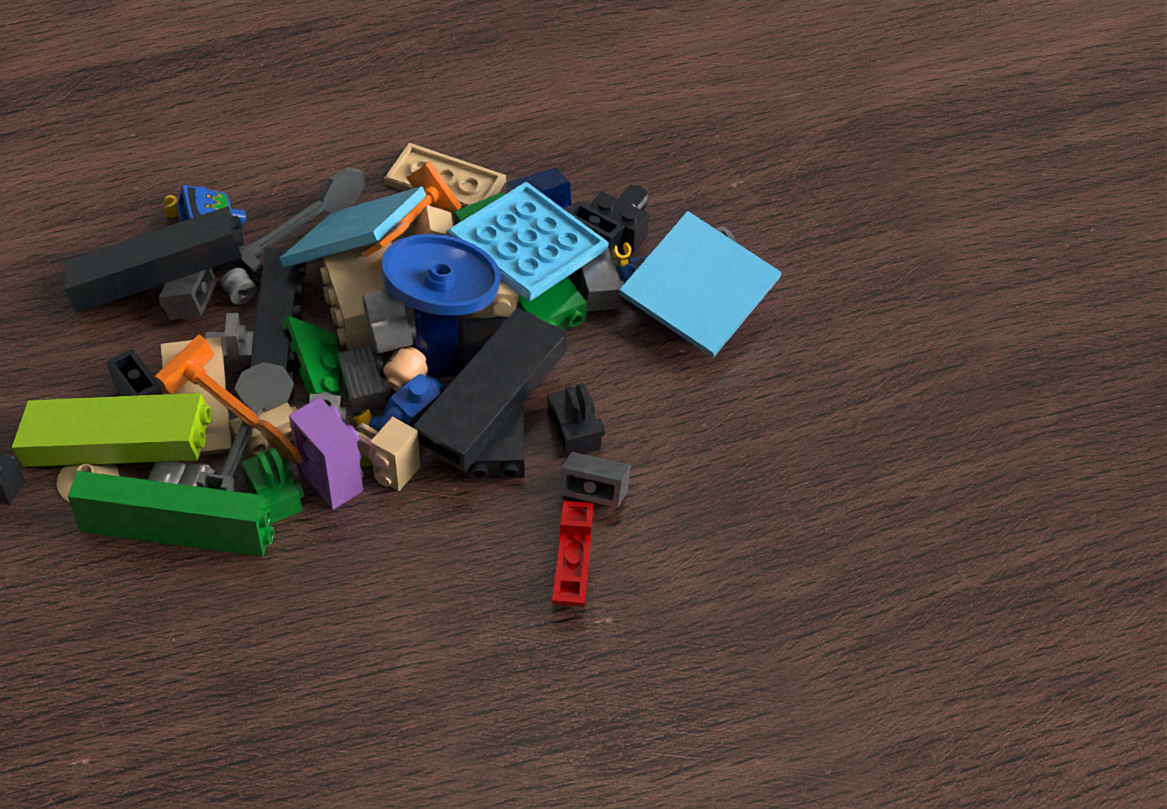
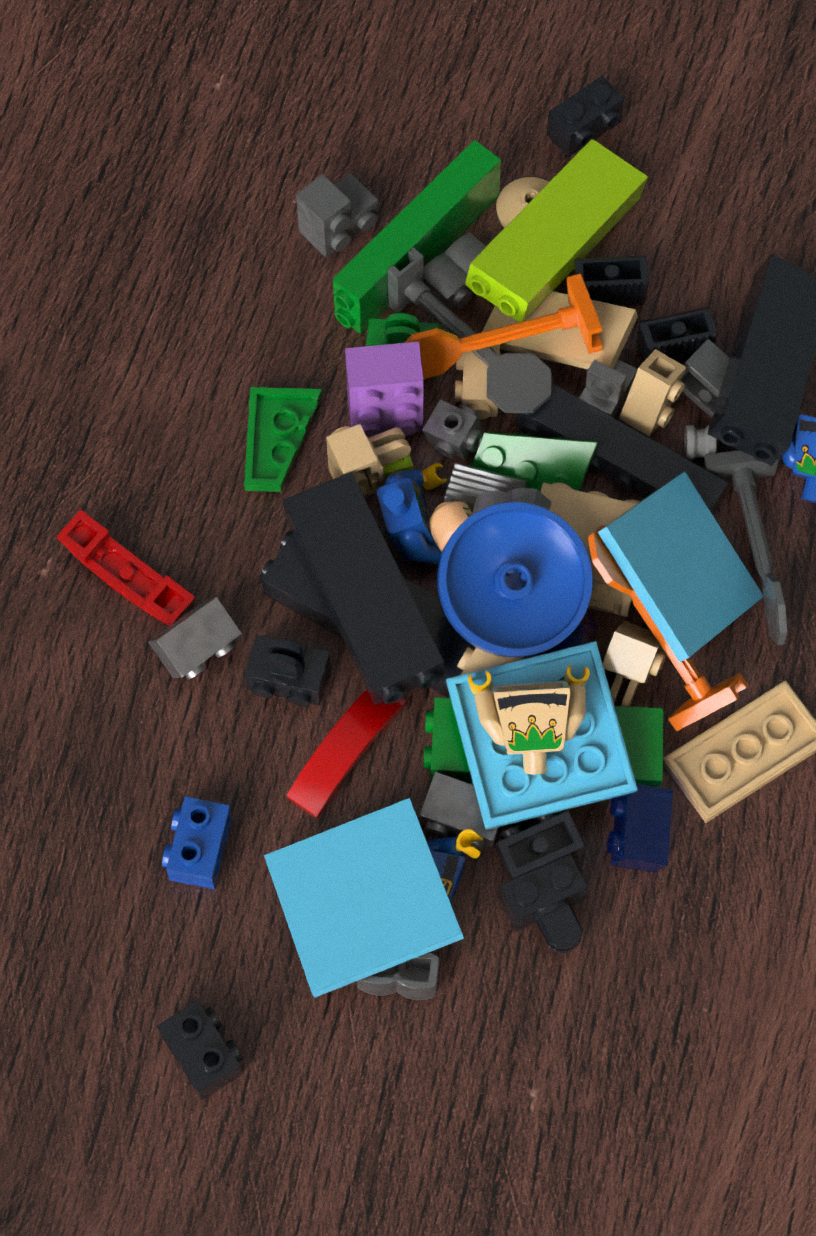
camera: 125 degrees right, 15 degrees up
(159, 322) = (676, 334): none -> black brick
(177, 584) = (335, 213): none -> dark grey brick
(213, 303) = (653, 392): none -> tan brick
(397, 530) = (275, 434): none -> green wing
(526, 225) = (532, 715): none -> tan torso
(605, 363) = (340, 752): none -> red slope
(729, 405) = (198, 842): none -> blue brick
(852, 334) = (200, 1049): none -> black brick

